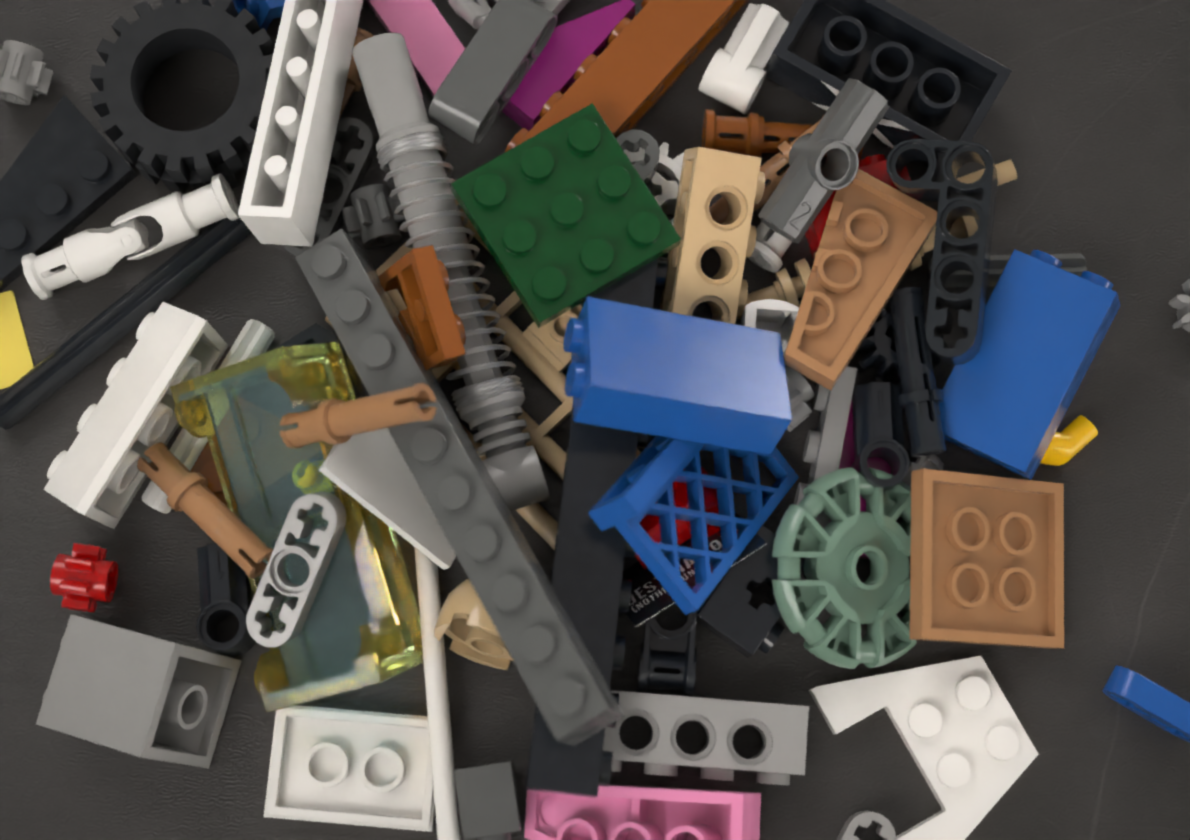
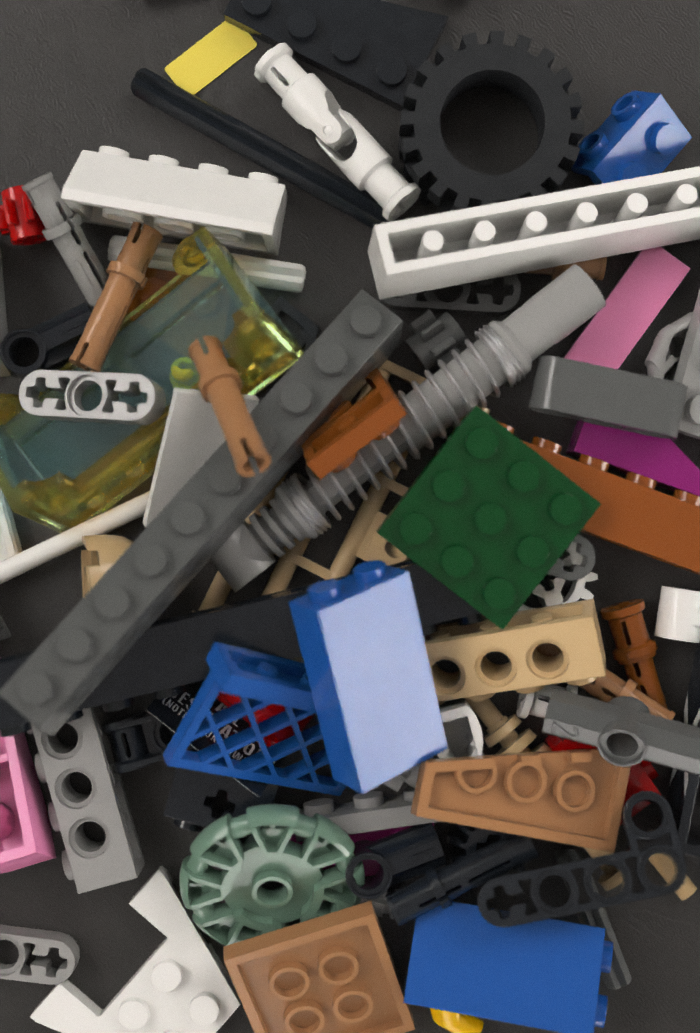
camera: 70 degrees right, 10 degrees up
(126, 536) = (65, 231): none -> light grey pin

